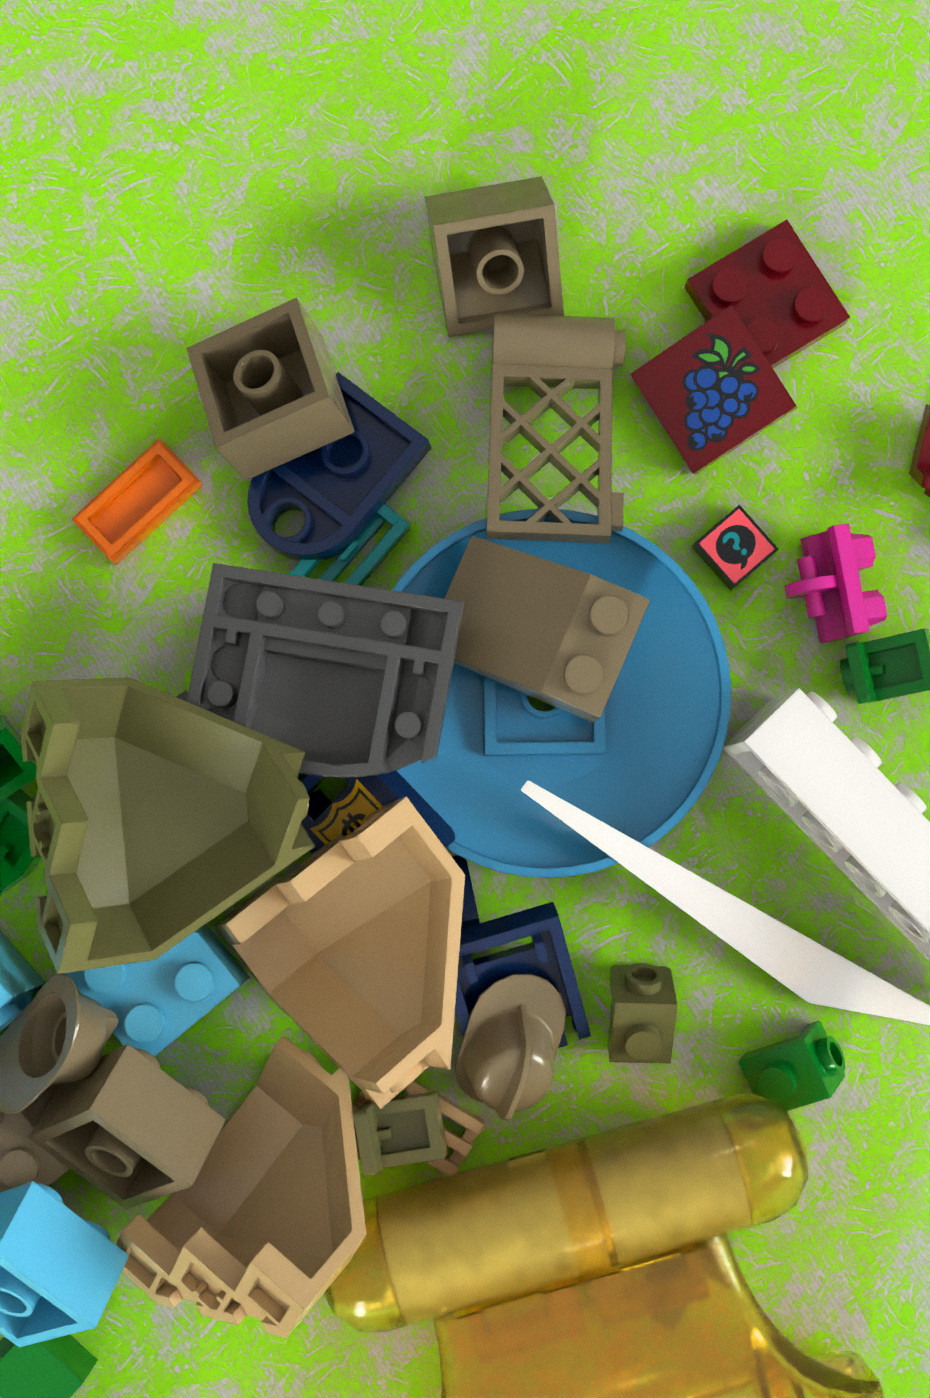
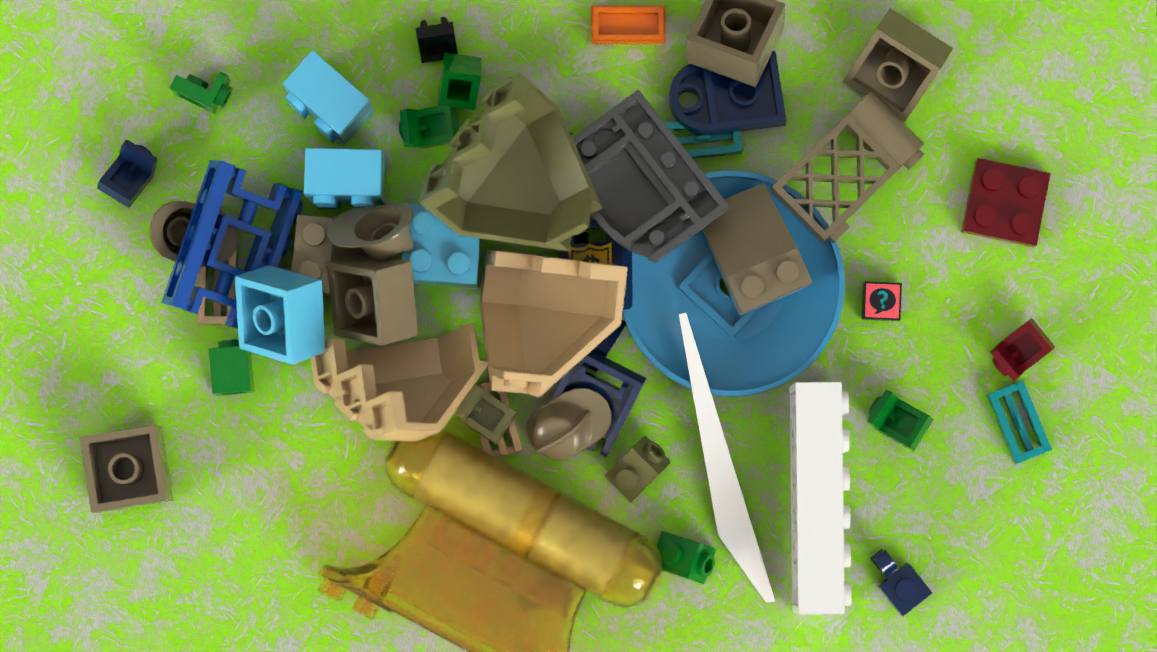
camera: 45 degrees right, 0 degrees up
(713, 390) = (939, 220): dark red tile -> none
(833, 583) = (906, 358): dark pink hips -> none

